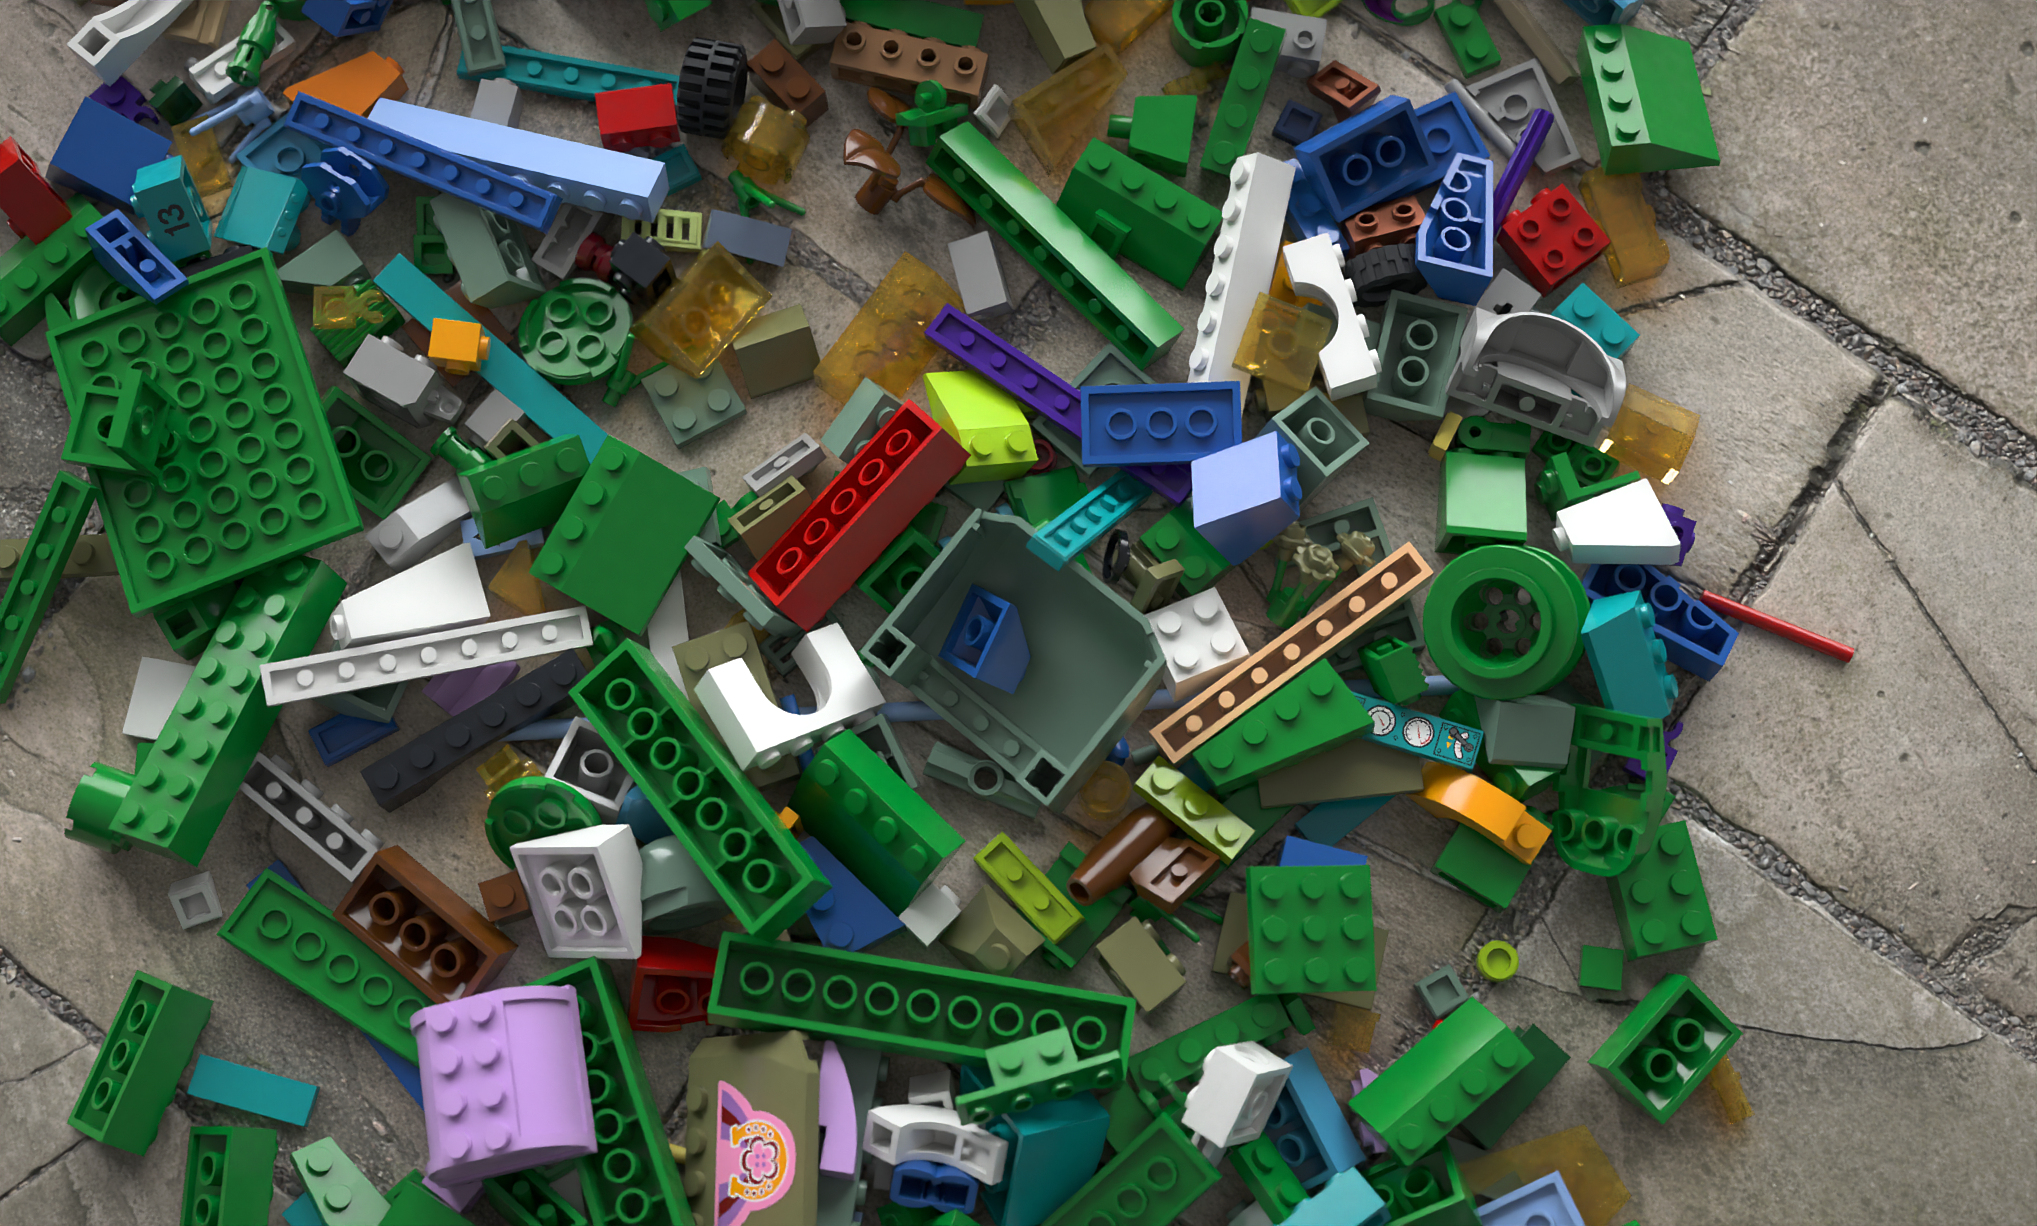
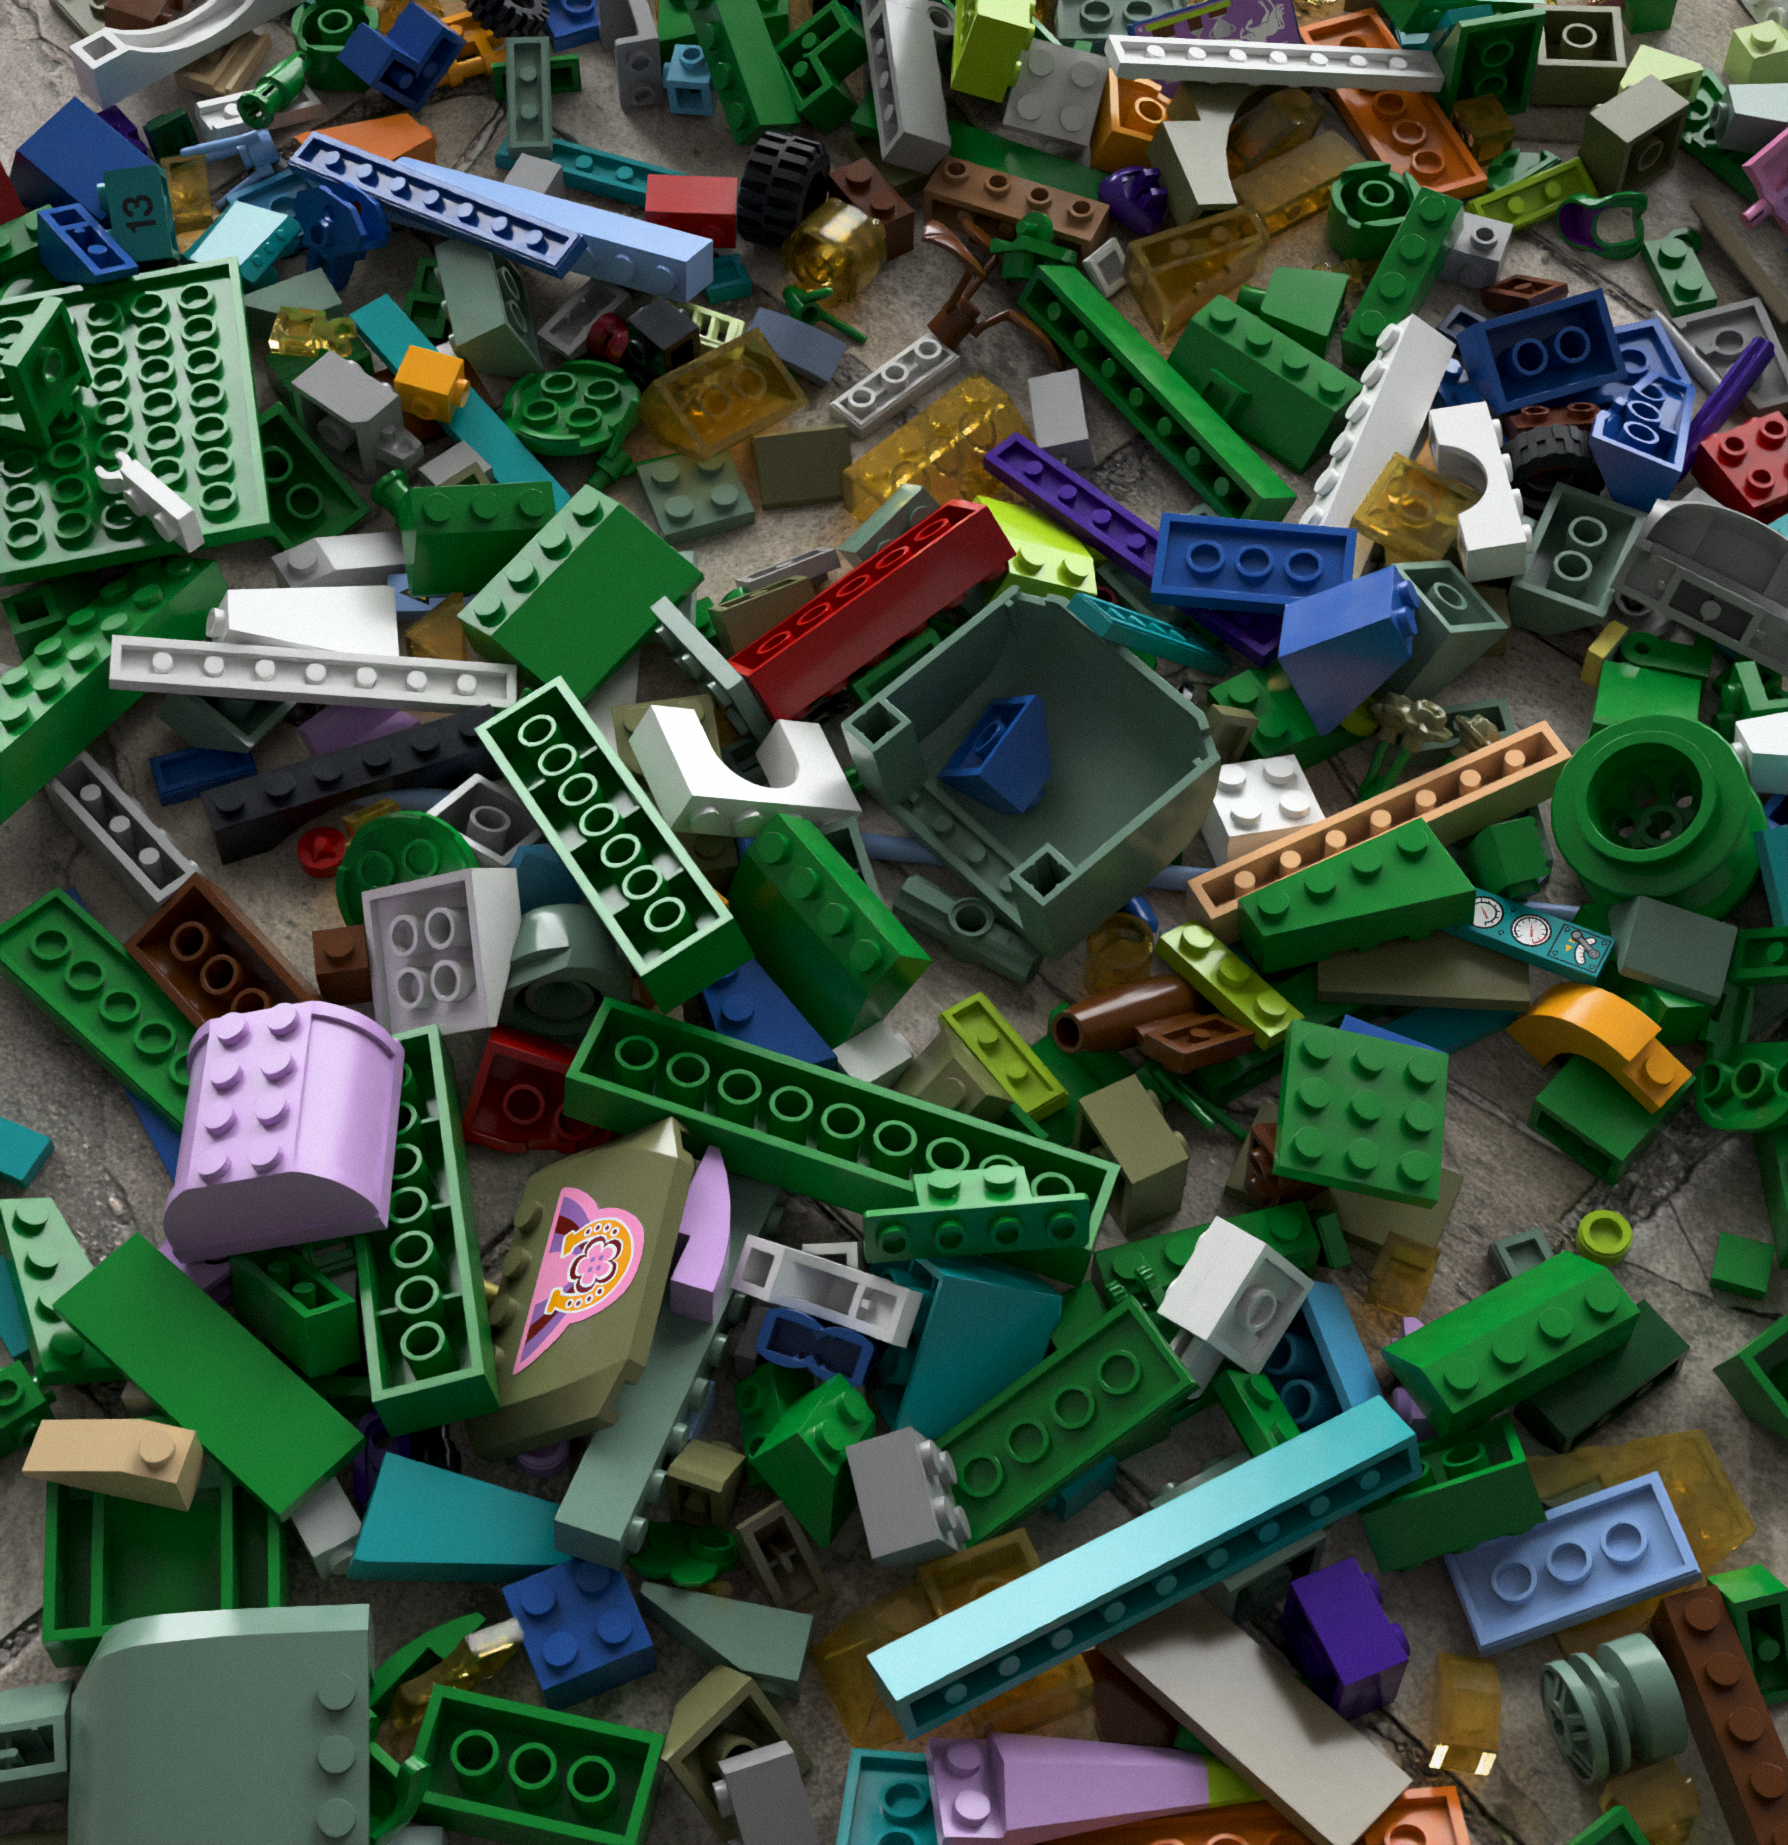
camera: 10 degrees right, 20 degrees down
(255, 524) = (152, 498): none -> white plate
(466, 791) = (321, 851): none -> red tile
(824, 275) = (894, 385): none -> white tile
(1007, 38) = (1135, 198): none -> dark purple piece

